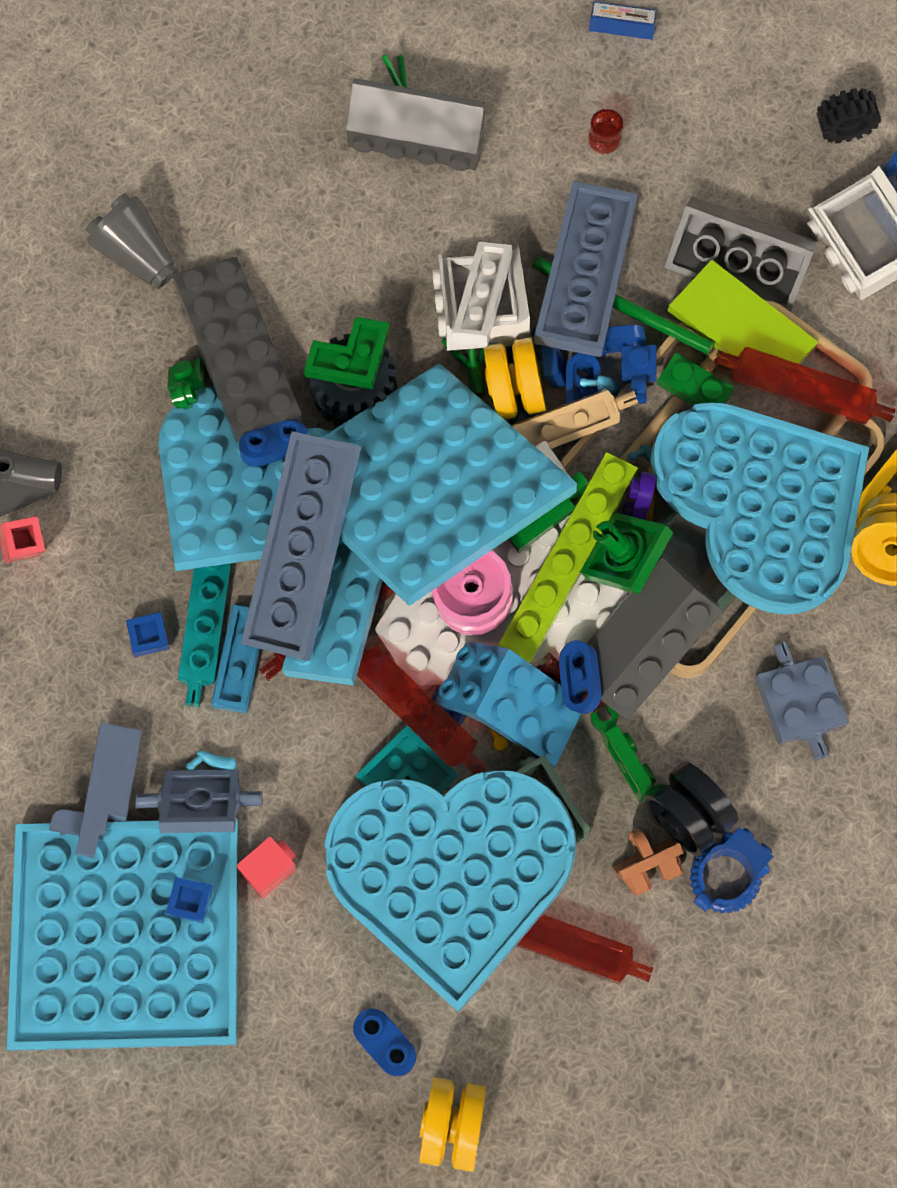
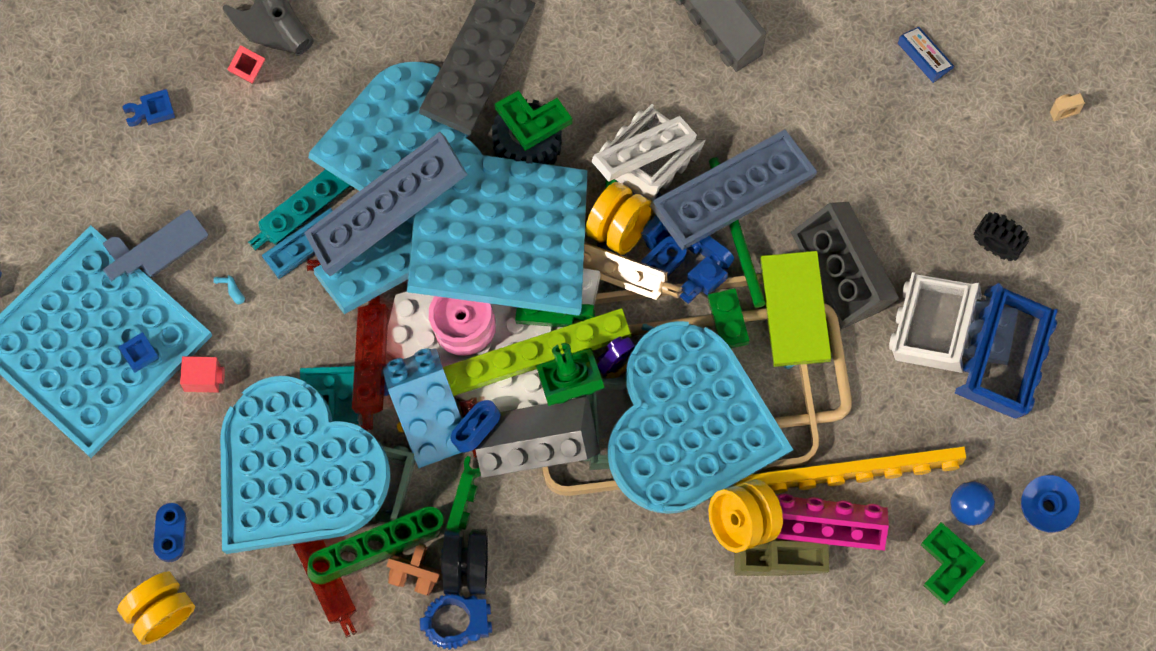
camera: 45 degrees right, 0 degrees up
(147, 634) = (265, 183): blue plate -> none
(184, 381) = (429, 51): green plate -> none
(199, 801) = (199, 302): sand blue plate -> none
(273, 442) = (437, 124): blue plate -> none
(588, 887) = (365, 555): none -> green beam
(602, 383) = (674, 268): medium azure piece -> none
(605, 131) = (840, 110): clear red wheel -> none
(801, 700) = (602, 563): sand blue plate -> none
(805, 385) = (792, 377): clear red plate -> none

